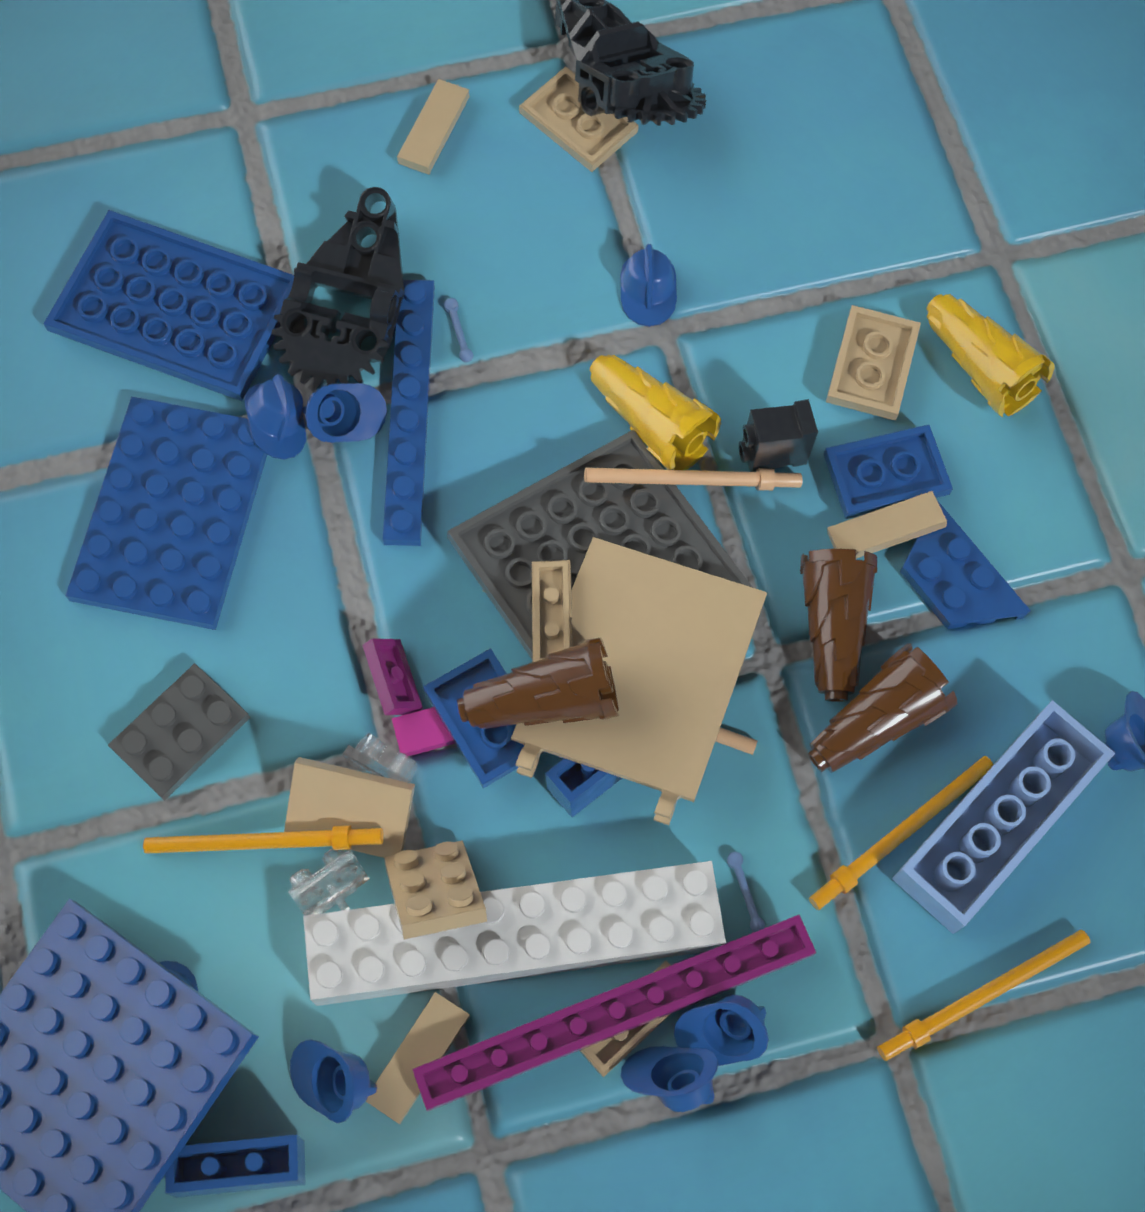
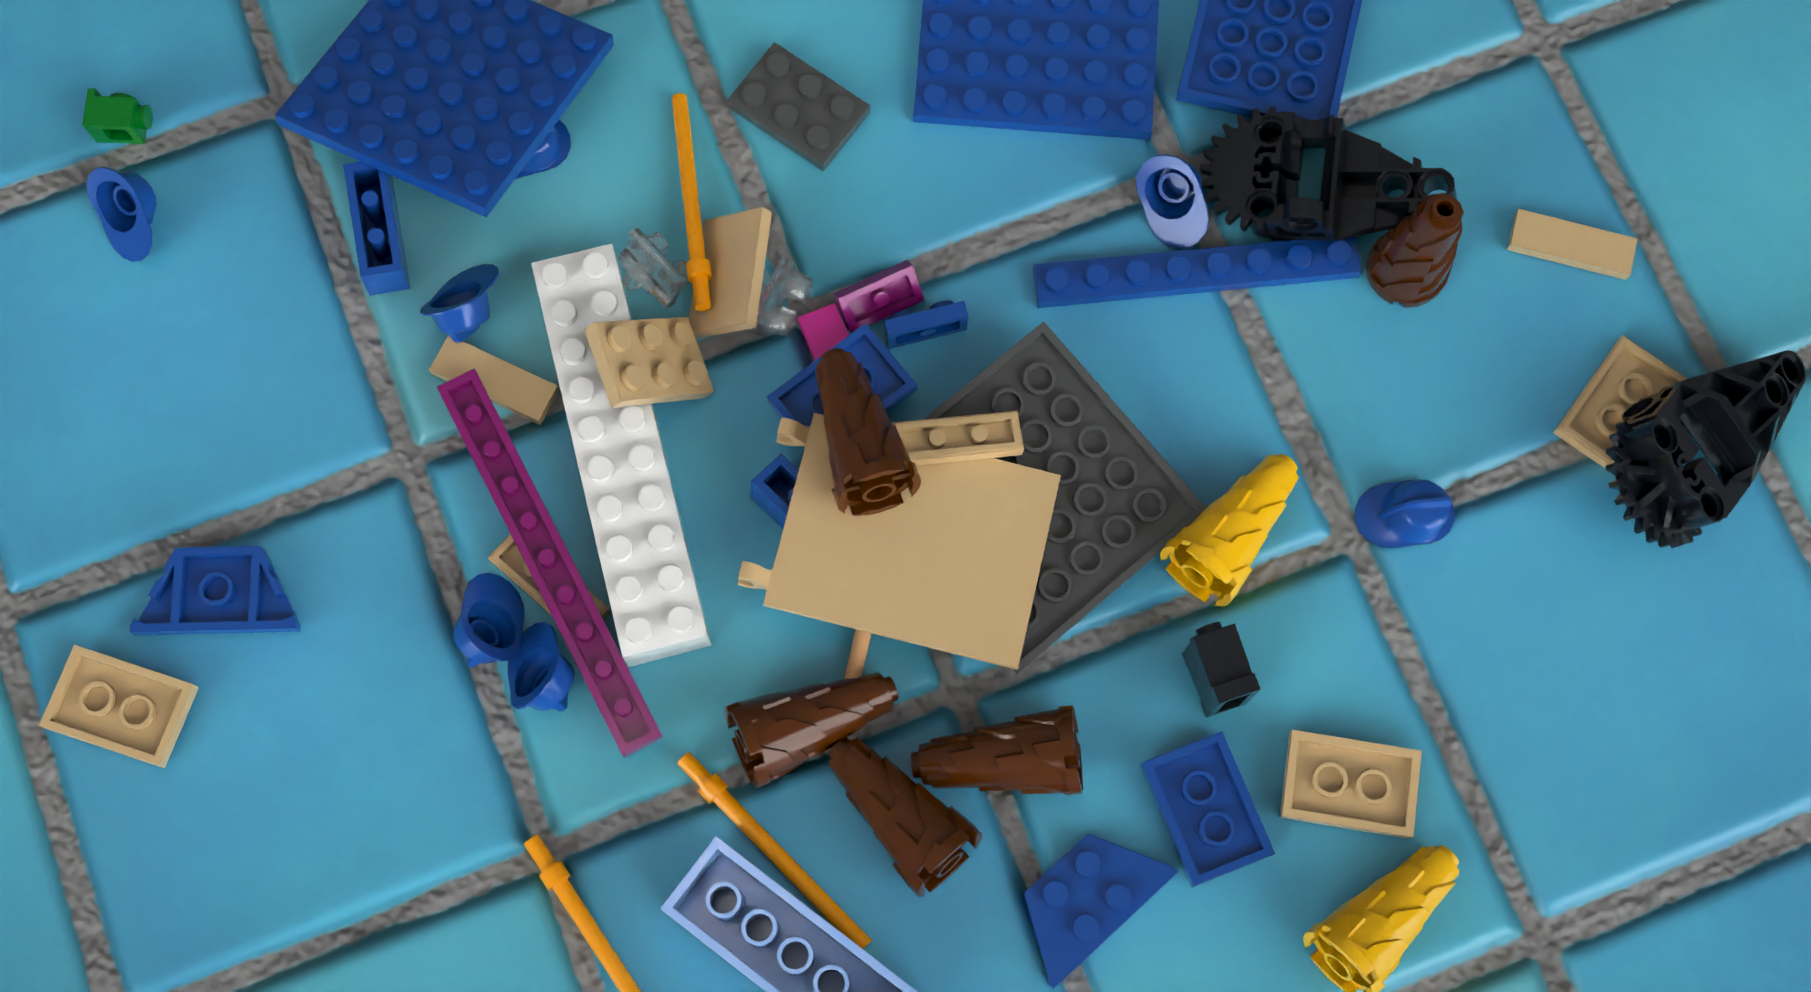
camera: 85 degrees right, 5 degrees up
(276, 418) = (1156, 129): blue piece -> none
(423, 623) = (939, 320): none -> blue plate
(429, 226) = (1417, 255): none -> reddish brown cone
(451, 307) = (1335, 299): medium blue hinge -> none
(735, 861) = (723, 673): medium blue hinge -> none
(762, 479) = (1172, 664): light nougat bar -> none
(798, 795) = (796, 725): none -> reddish brown cone
(889, 525) = (1133, 811): tan tile -> none

